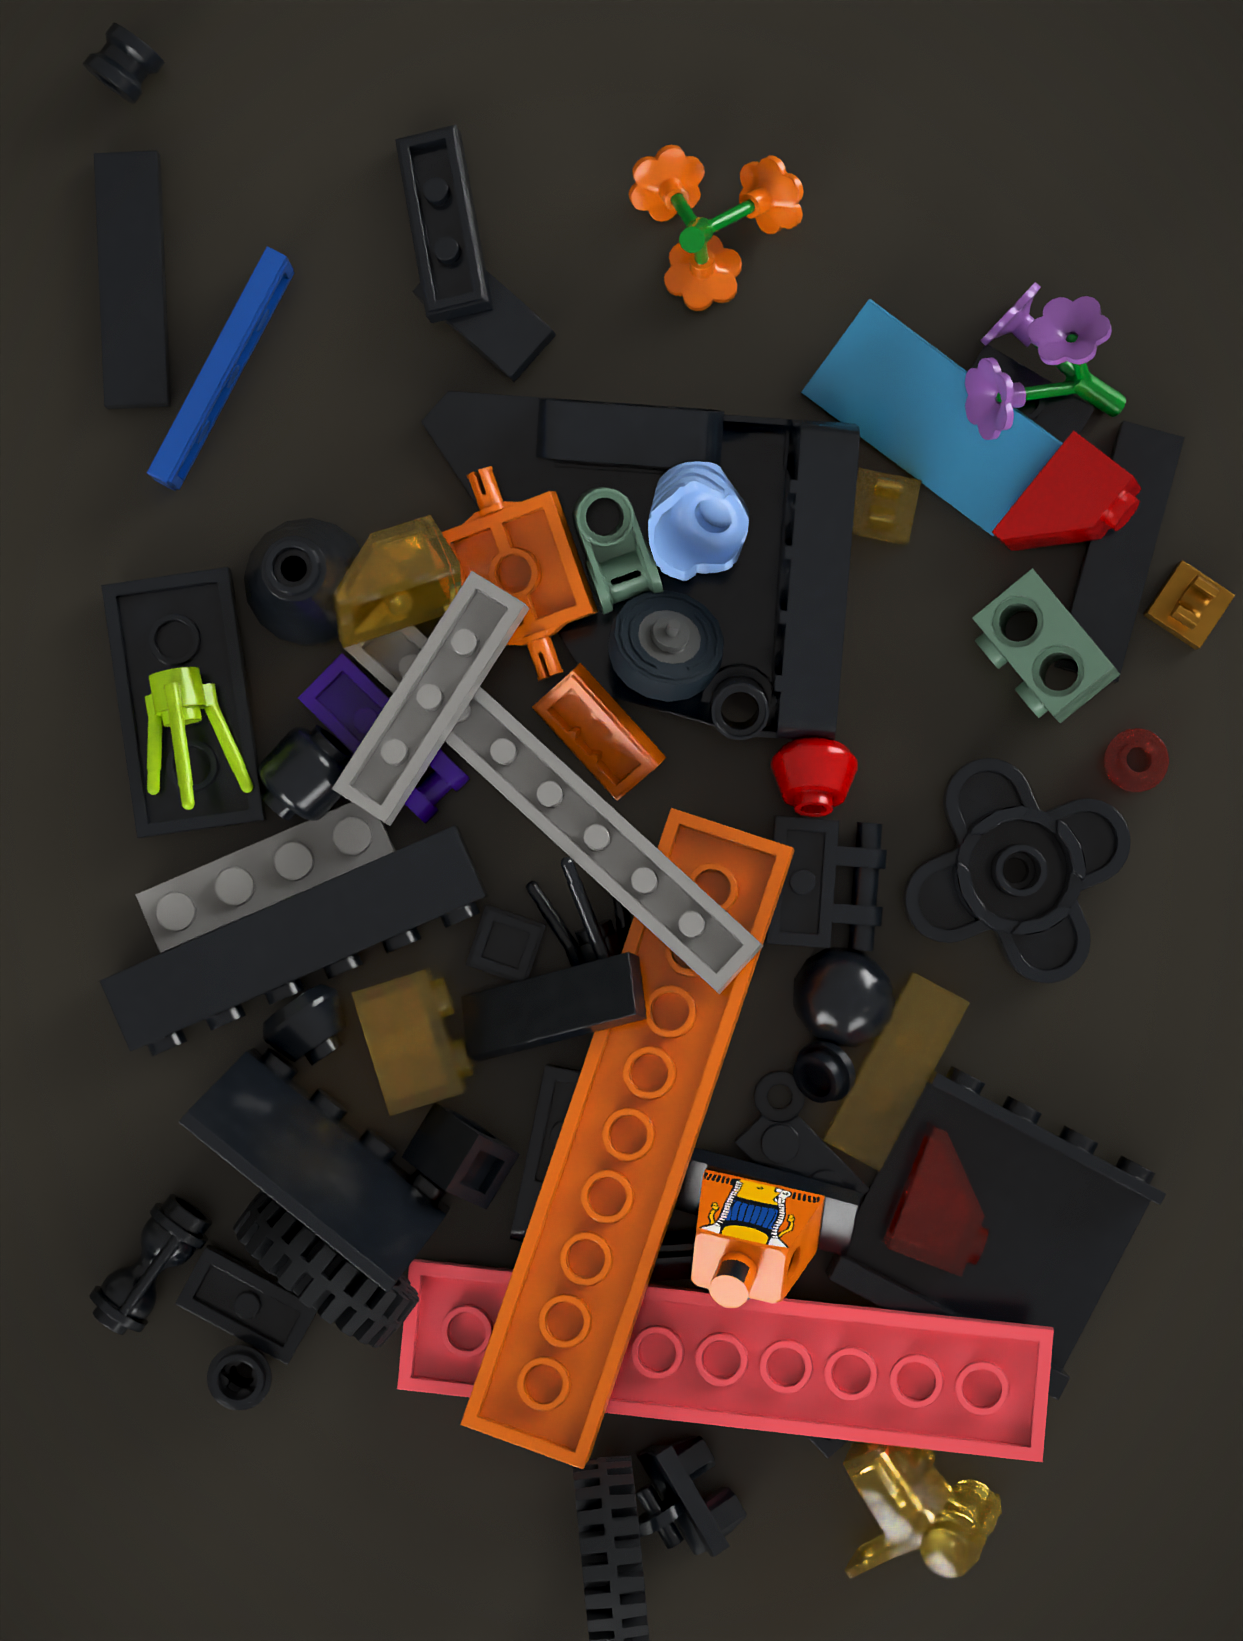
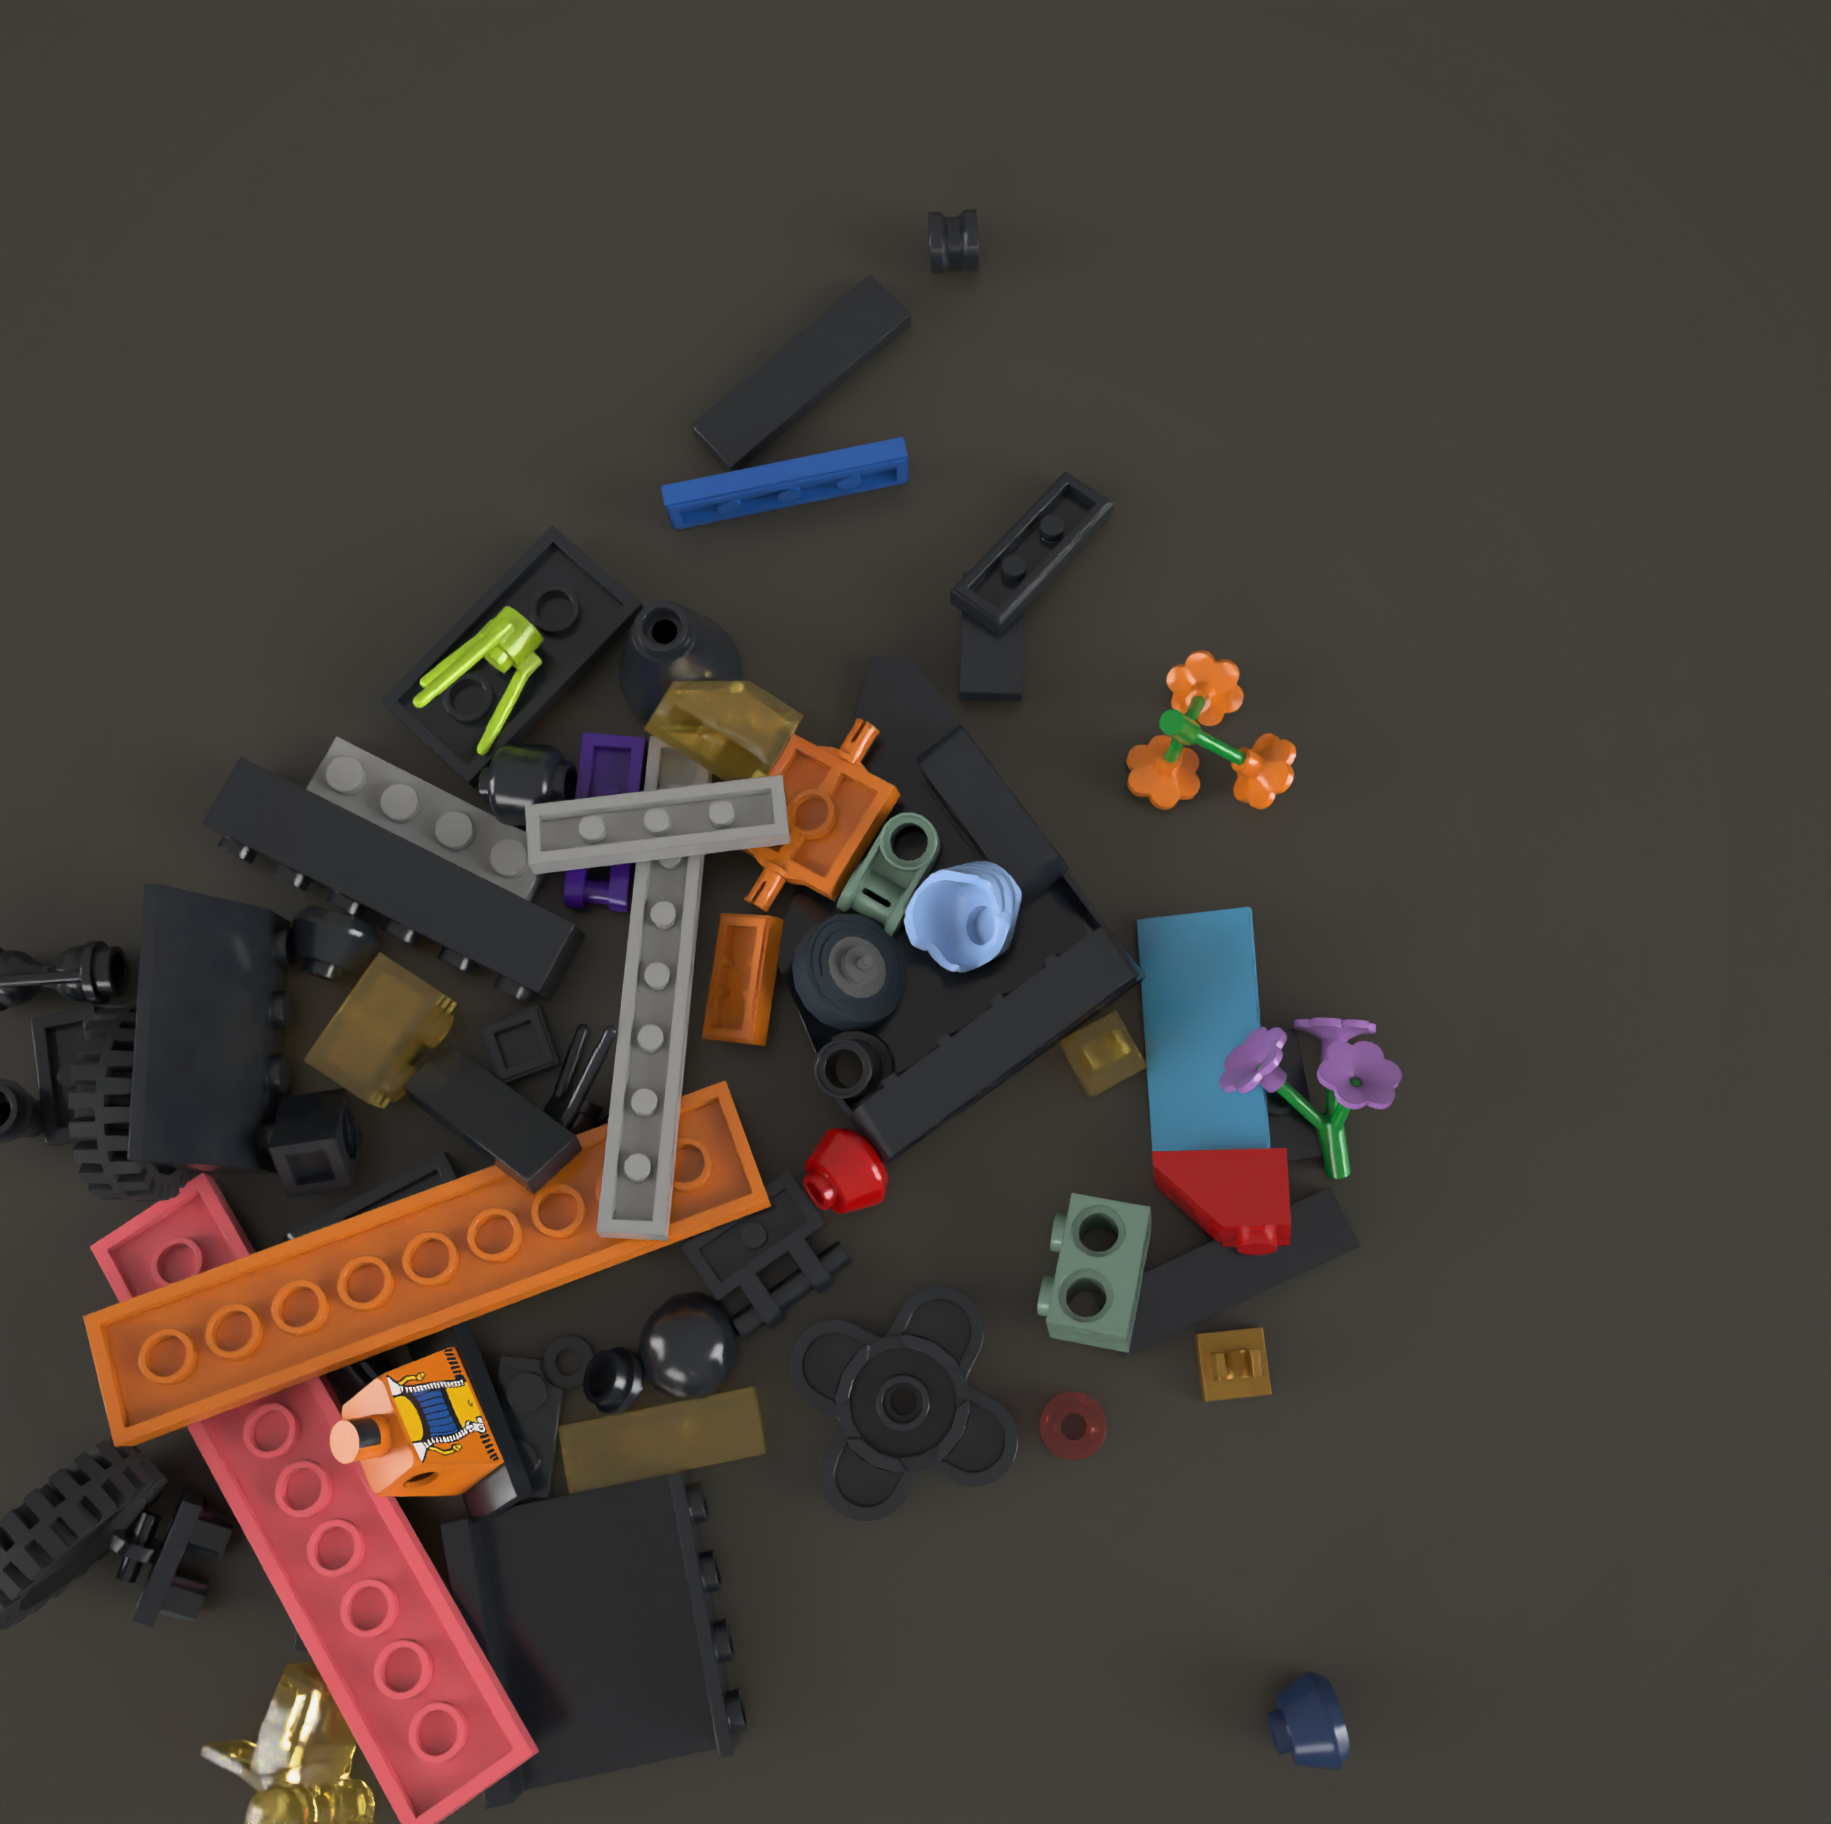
camera: 55 degrees right, 10 degrees down
(937, 1209) = (569, 1570): clear red slope -> none

